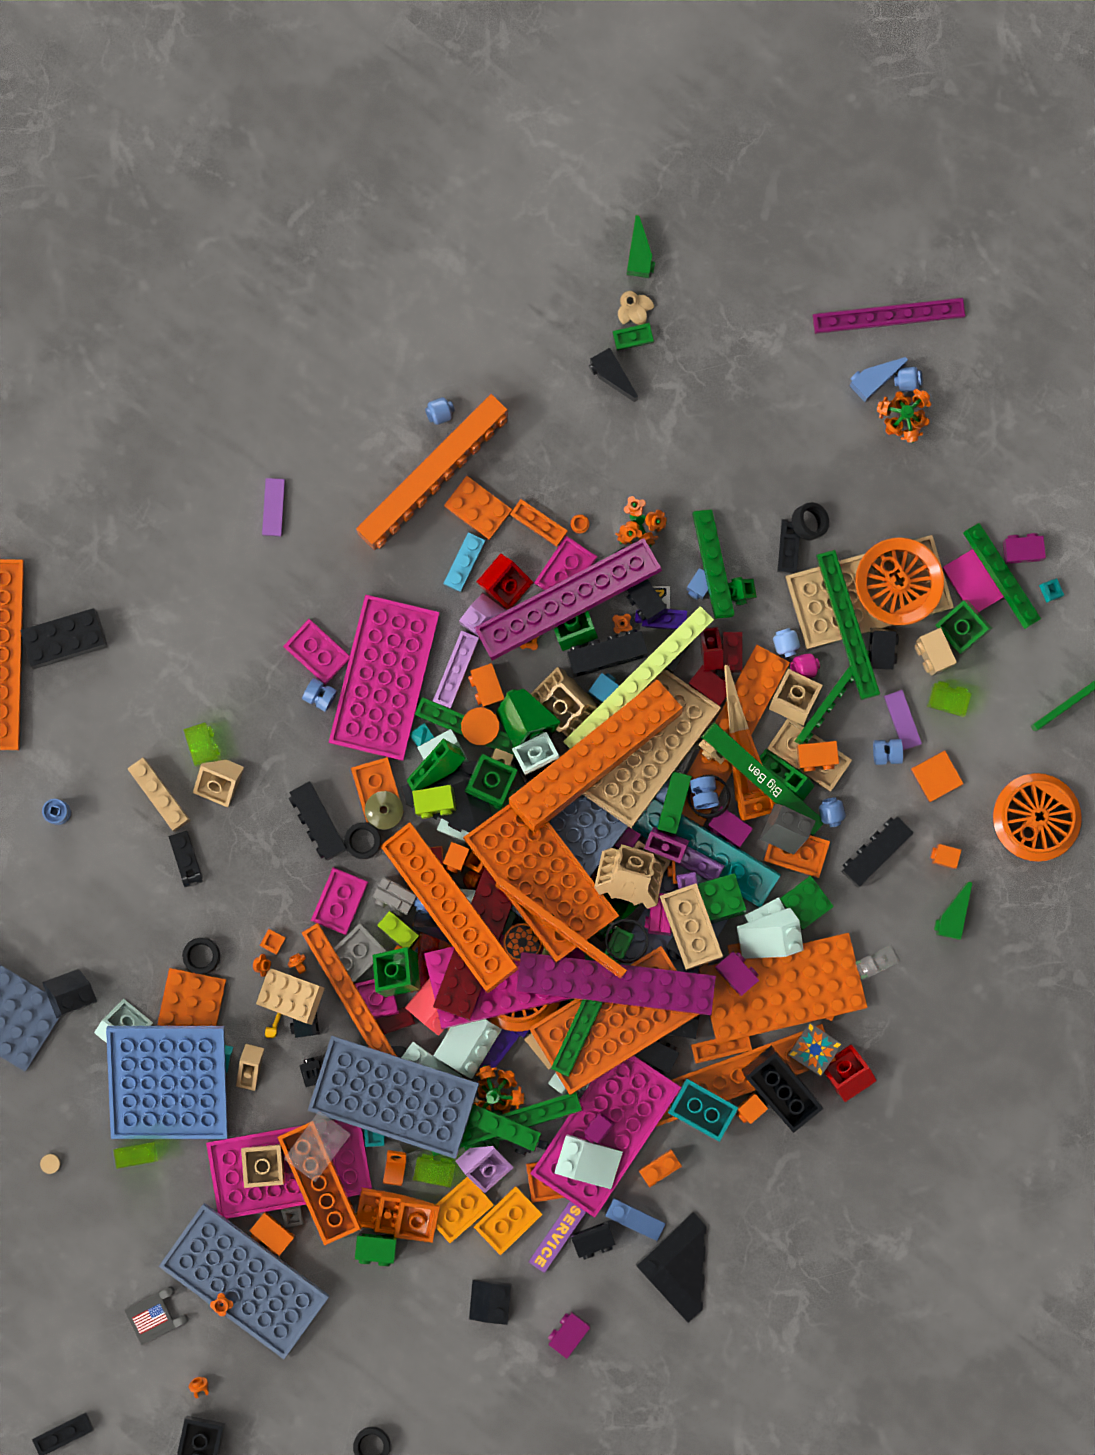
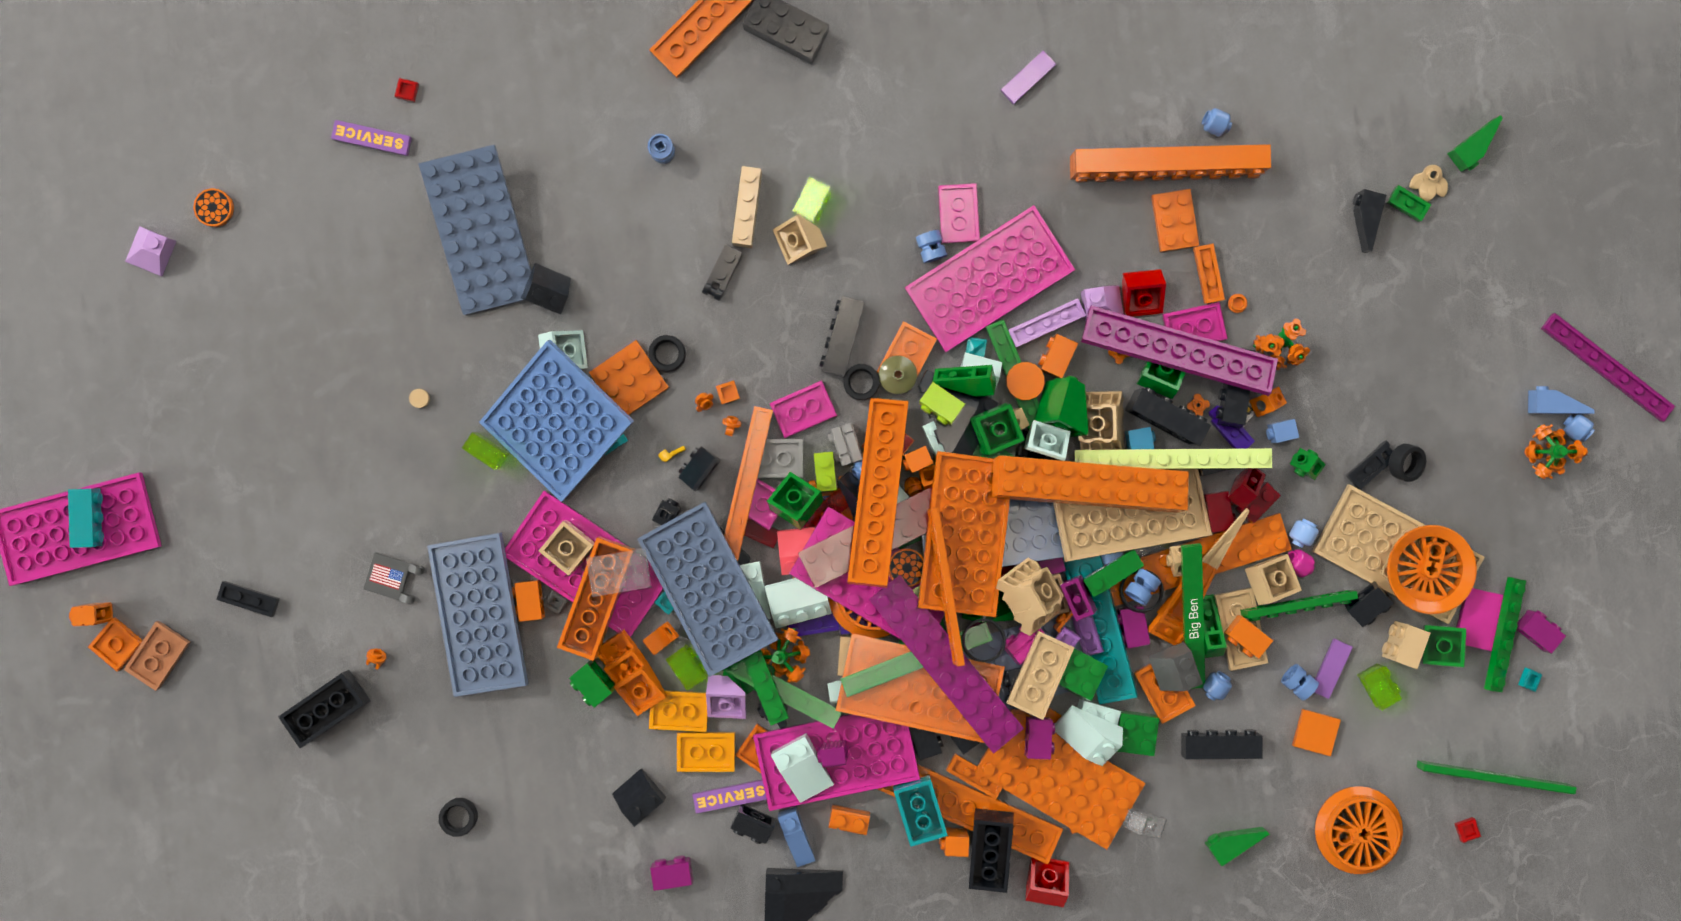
camera: 45 degrees right, 5 degrees up
(221, 1310) = (441, 620): orange plate -> none
(250, 1067) = (626, 466): tan slope -> none
(290, 996) = (702, 445): tan plate -> none
(464, 562) = (1127, 250): medium azure plate -> none
(672, 569) = (1272, 402): none -> orange bracket
(713, 564) = (1307, 426): green plate -> none
(815, 1049) = (1041, 843): tile -> none
(848, 625) = (1362, 564): green tile -> none
(945, 856) = (1267, 796): orange brick -> none

